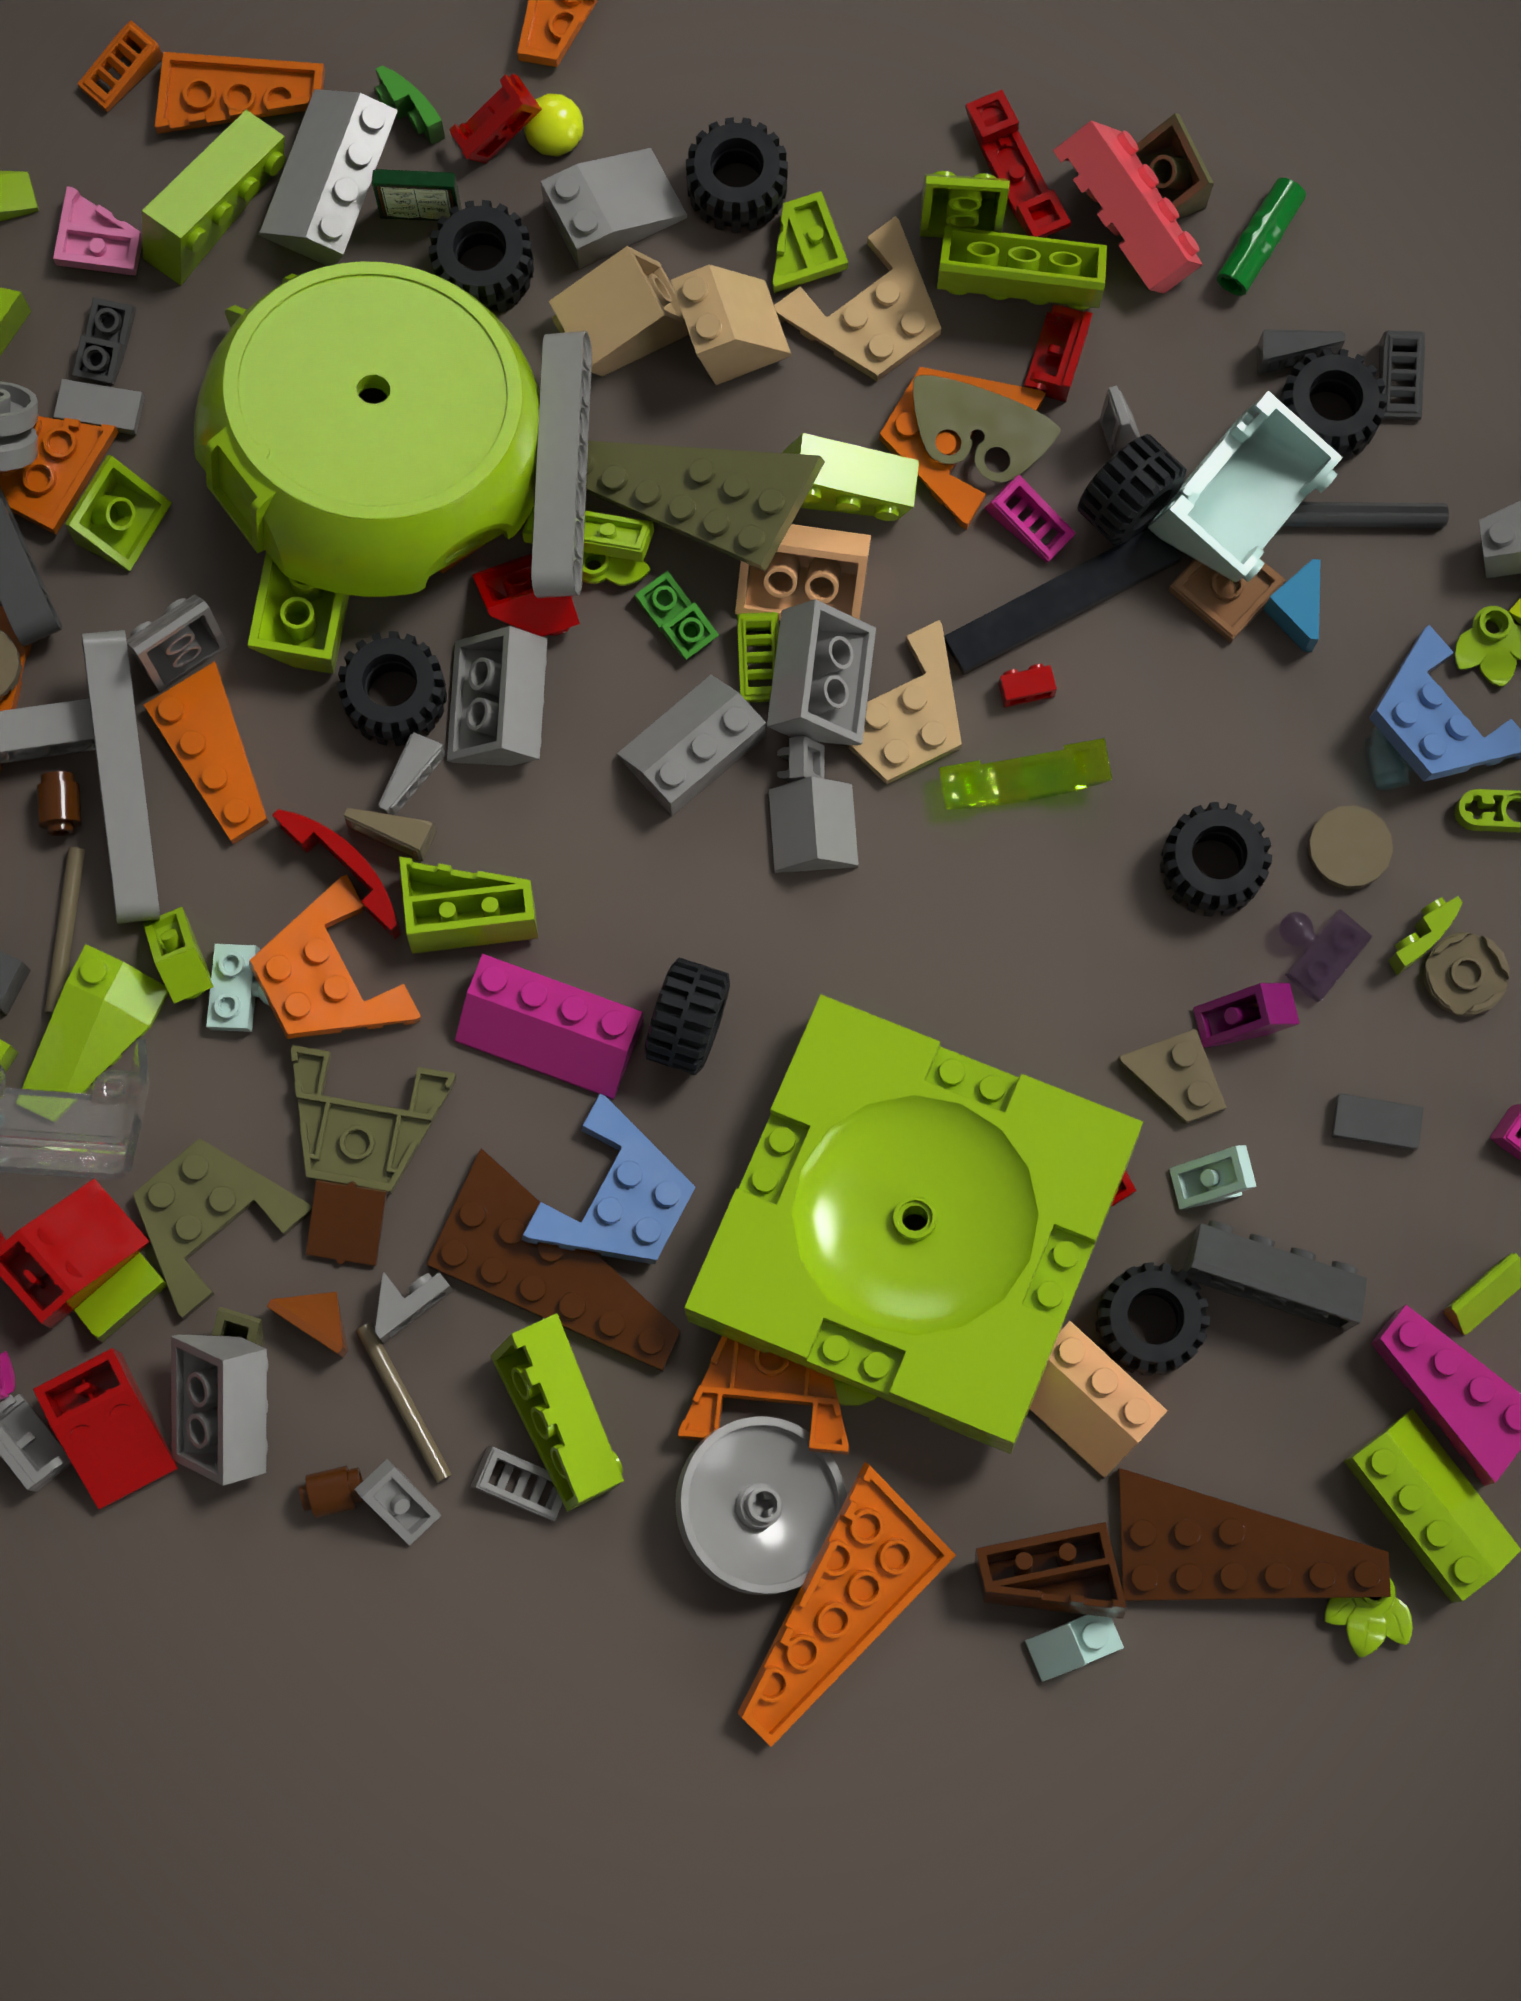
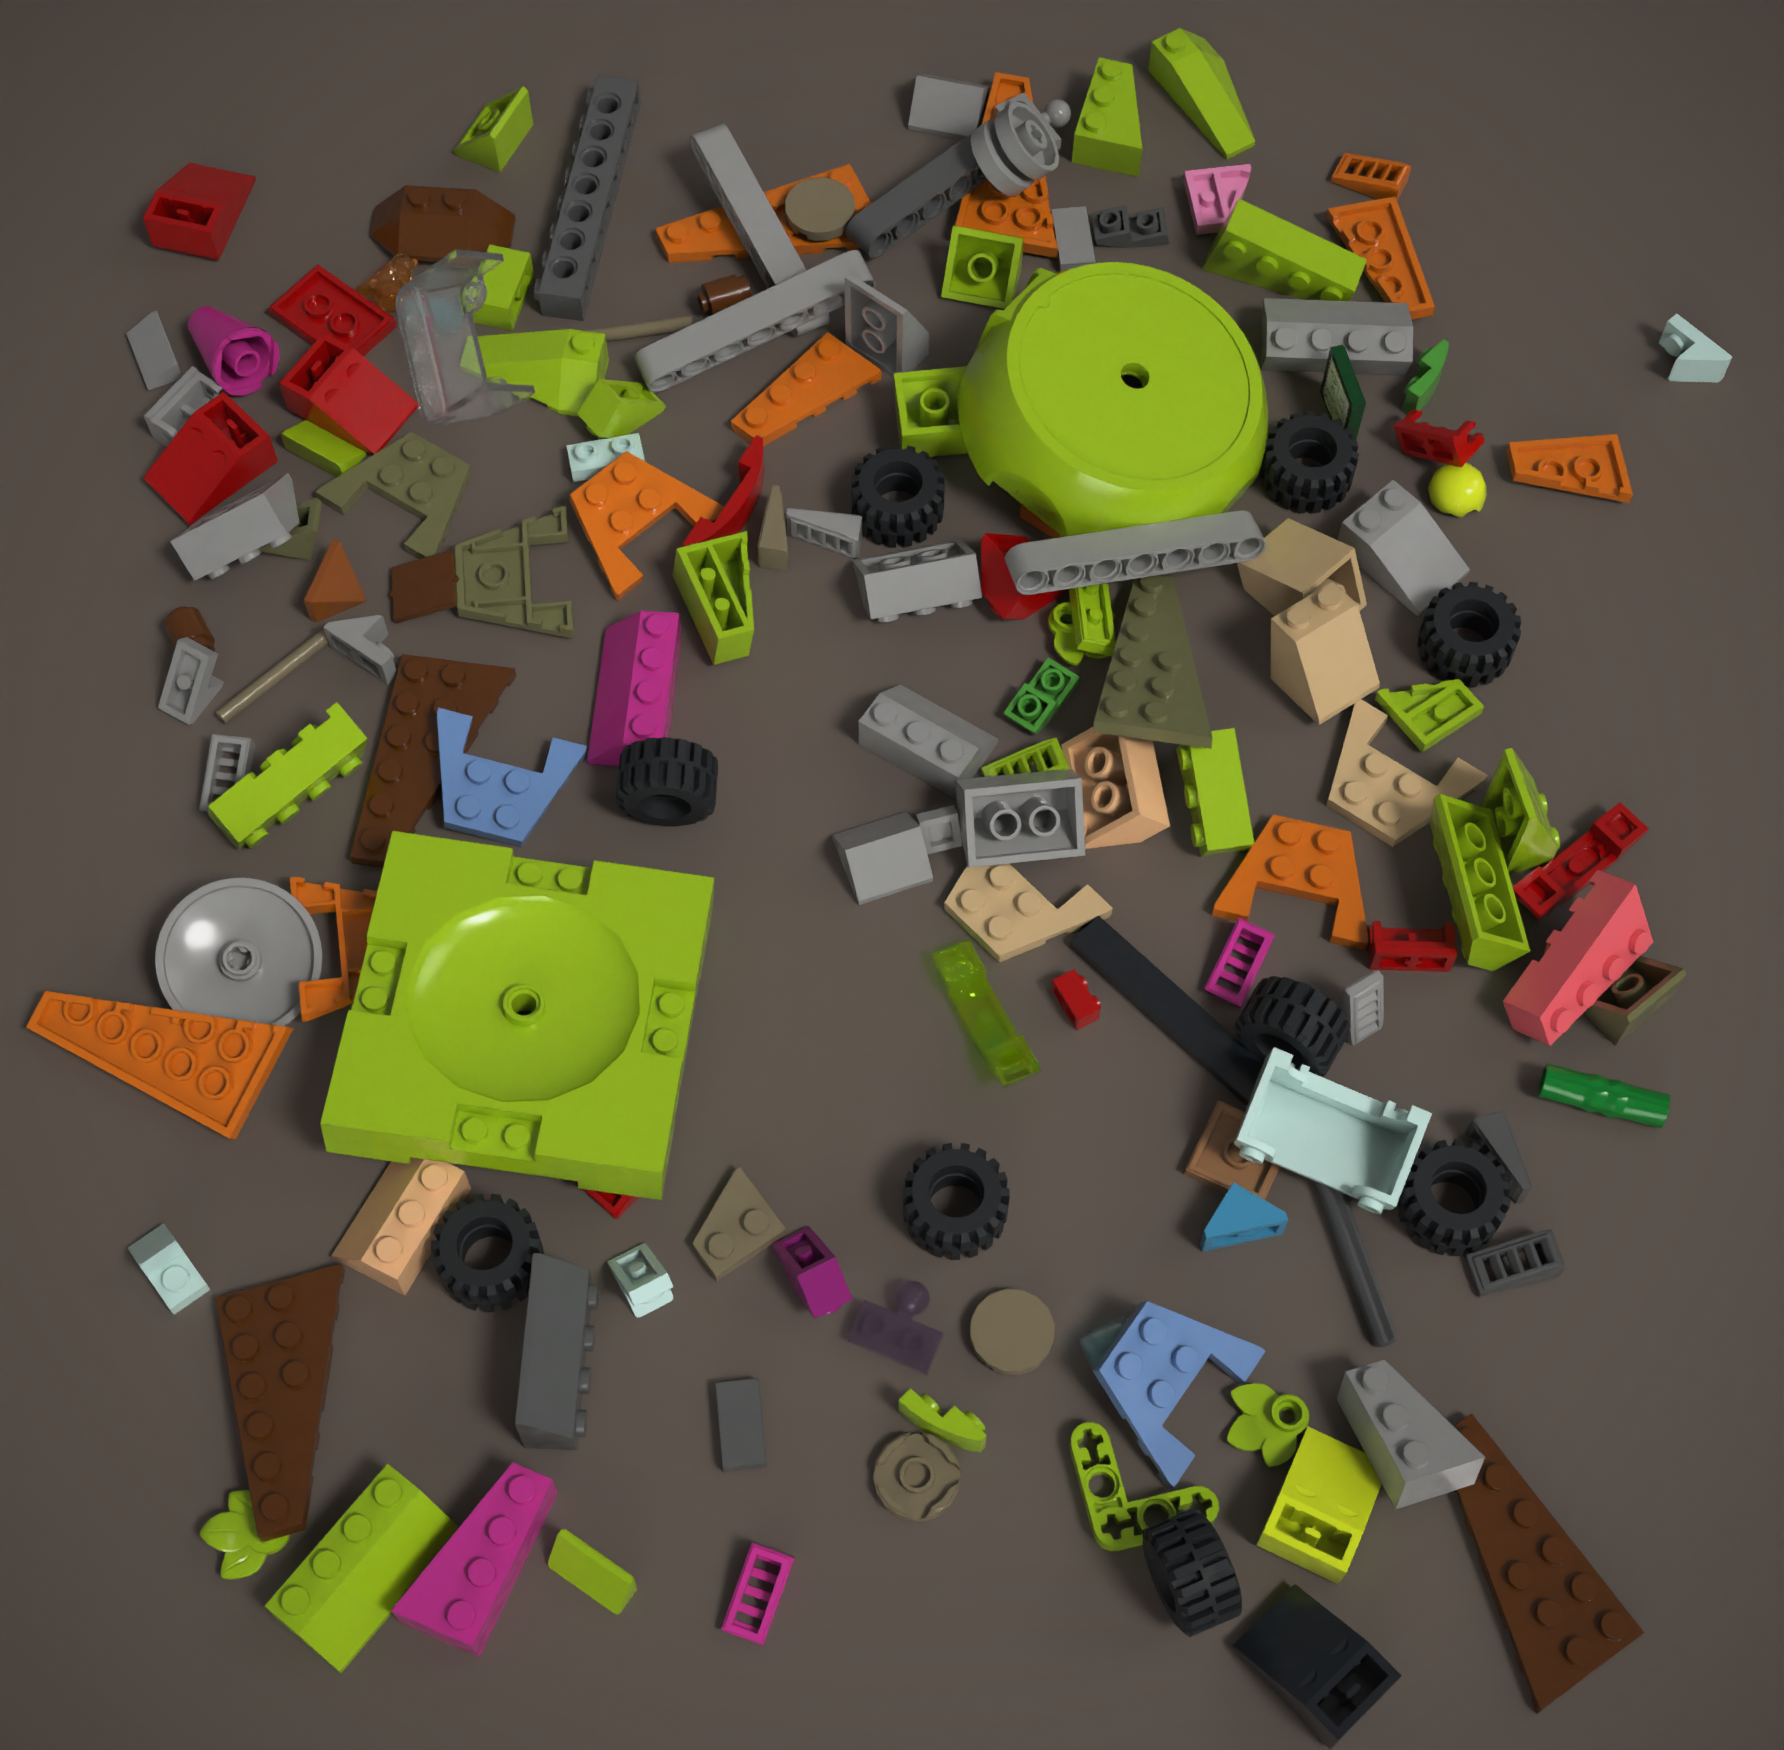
camera: 75 degrees right, 15 degrees down
(964, 408) = (1324, 911): olive piece -> none
(1054, 1572) = (227, 1223): reddish brown wedge -> none

